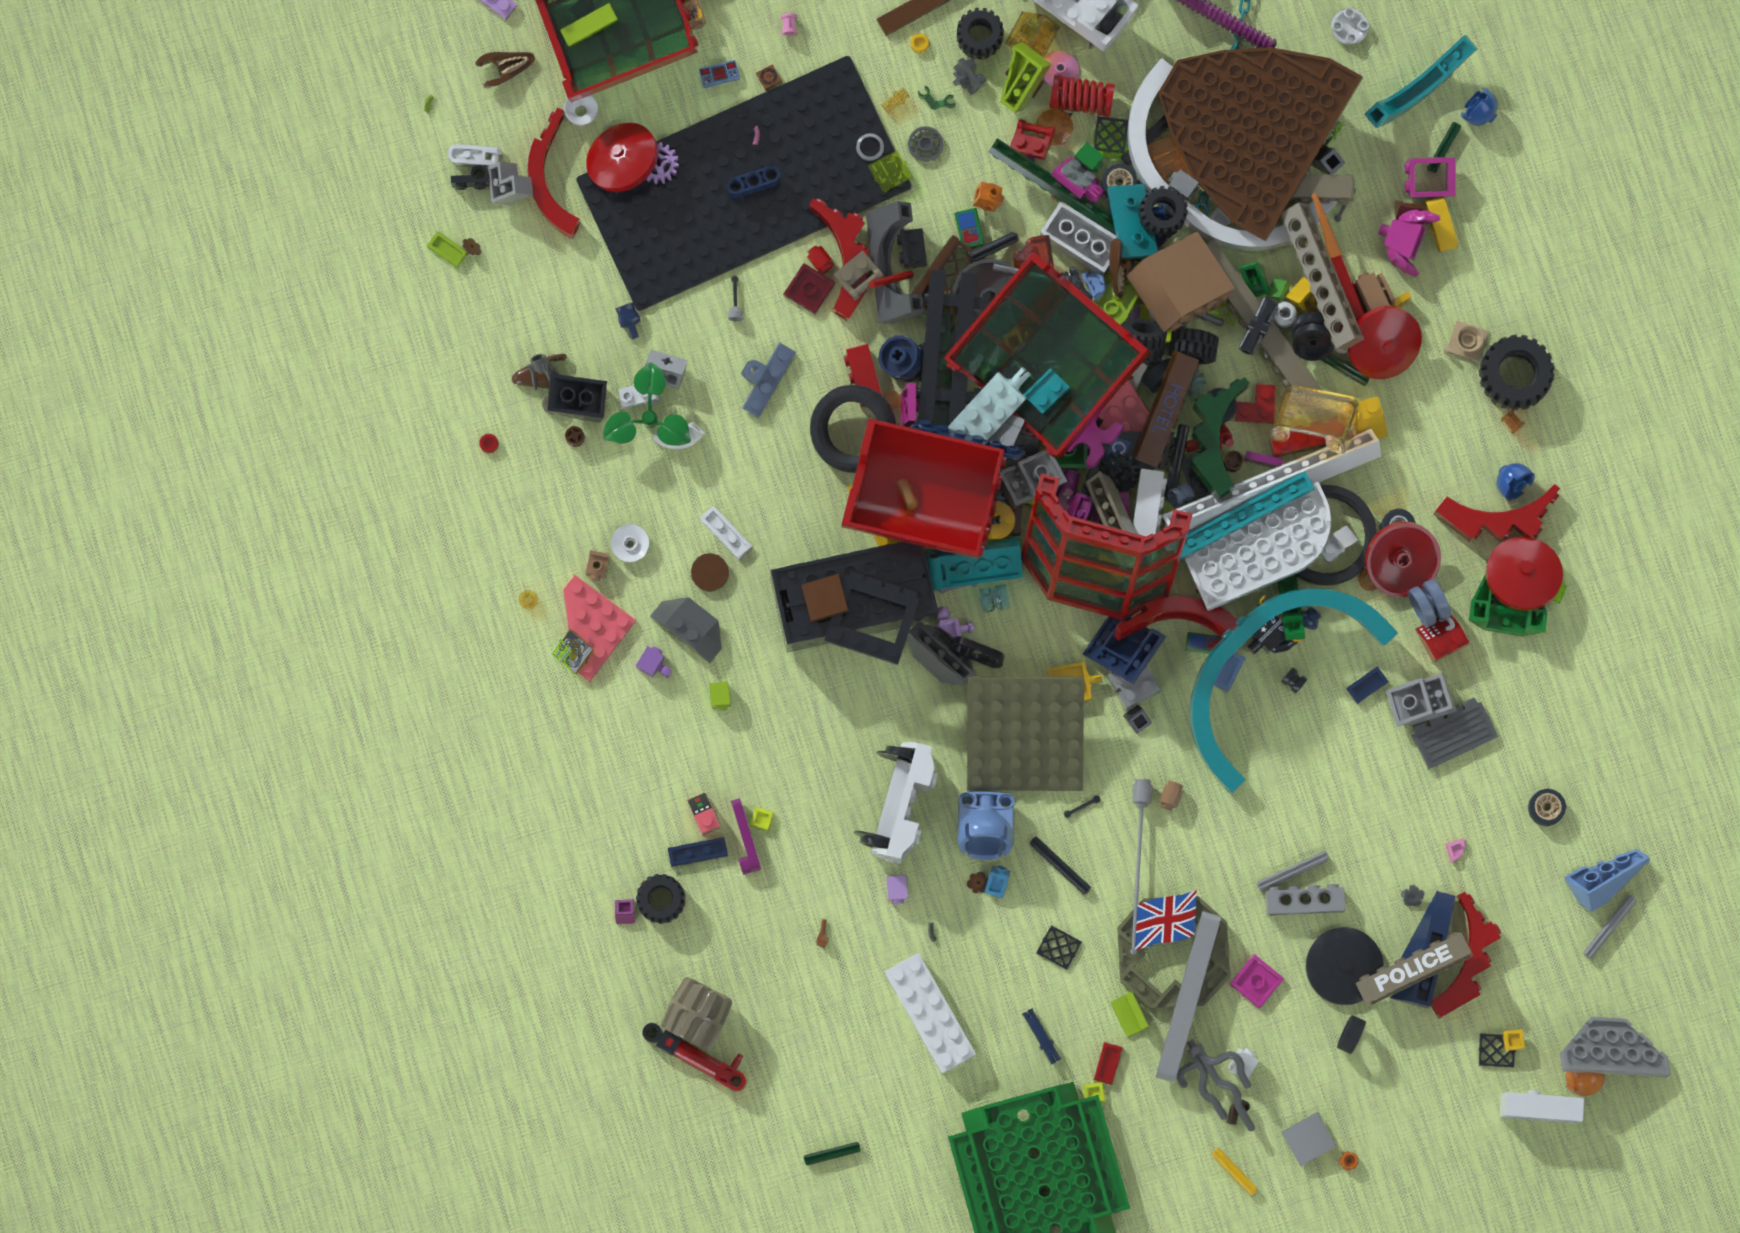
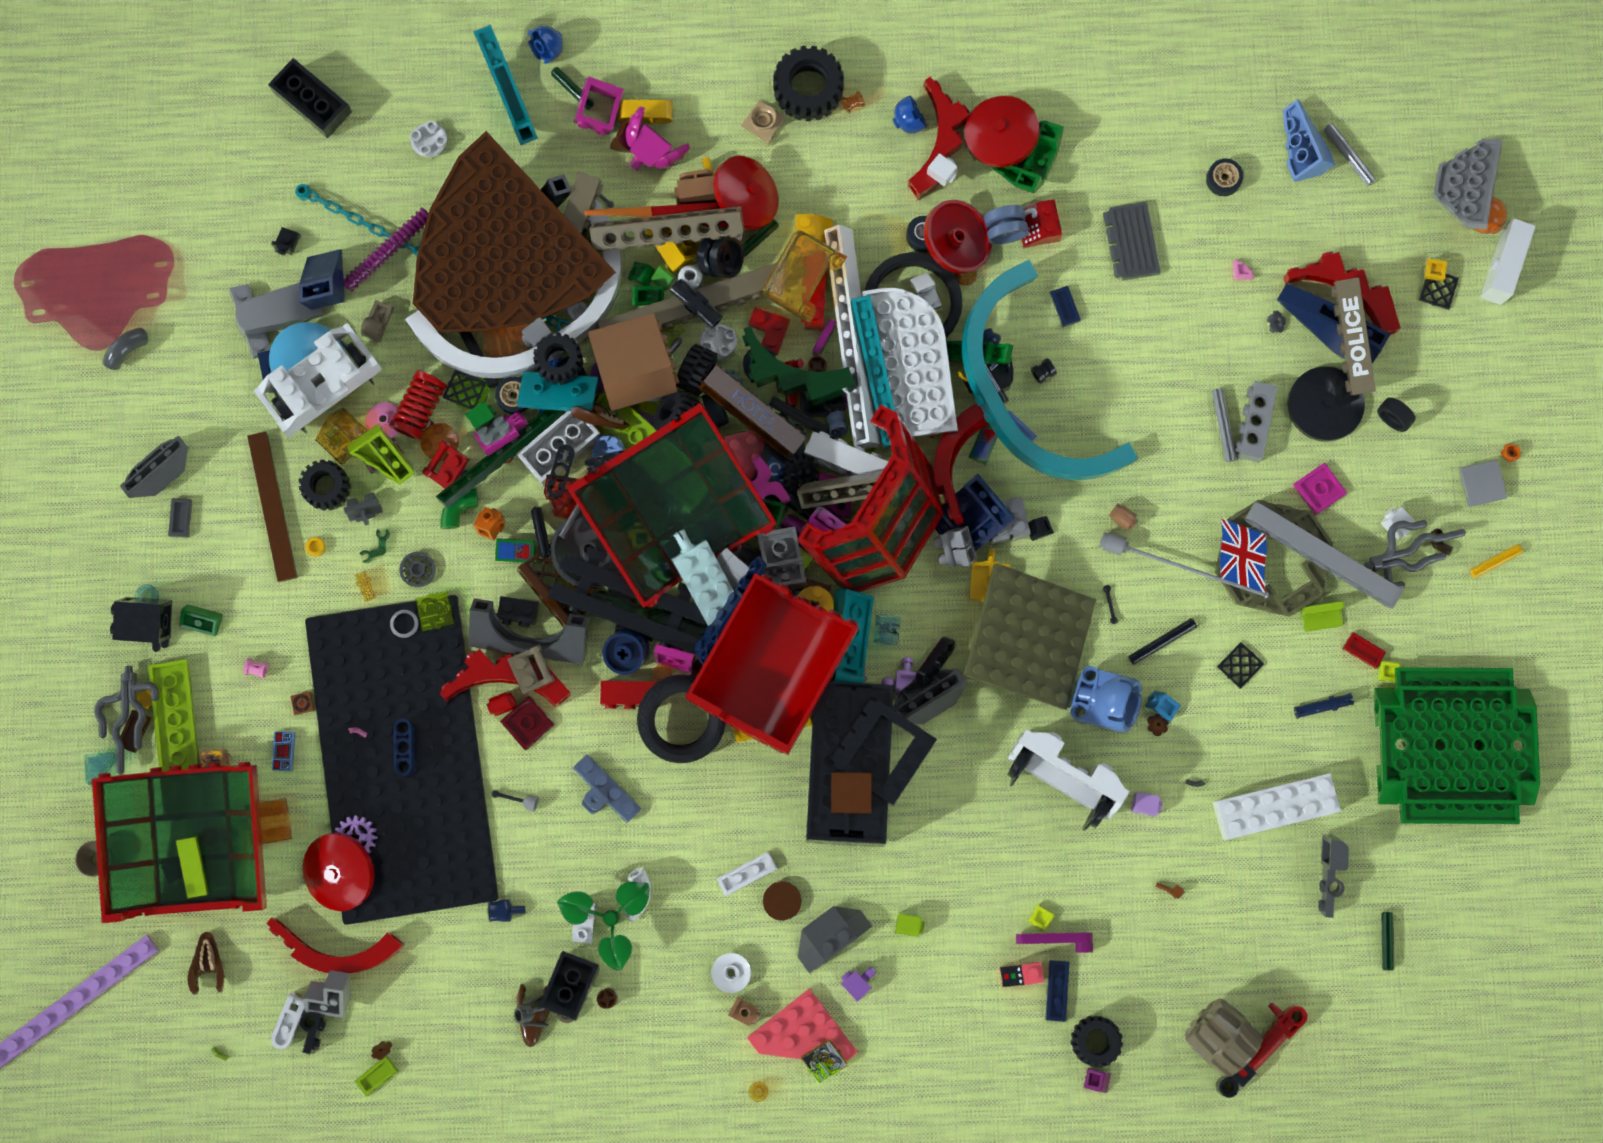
camera: 75 degrees left, 0 degrees up
(488, 443) = (587, 1088): red tile -> none
(588, 103) = (272, 890): white piece -> none
(652, 86) = (275, 821): none -> clear orange slope
(671, 366) = (565, 882): light grey brick -> none
(891, 279) = (543, 639): red bar -> none
(892, 1079) = (1333, 857): none -> dark grey plate
(905, 490) = (764, 683): clear yellow pin -> none
(984, 159) = (451, 516): none -> green cylinder
(1046, 391) = (704, 518): teal plate -> none
(1068, 251) = (569, 460): none -> black beam
(1092, 641) = (956, 547): none -> light grey hips
(1154, 33) = (376, 323): none -> dark tan plate
(1230, 361) = (720, 340): none -> white dish
(1276, 268) = (641, 273): none -> green slope
(1421, 700) = (1094, 260): light grey slope -> none
(1465, 525) = (942, 170): none -> white brick

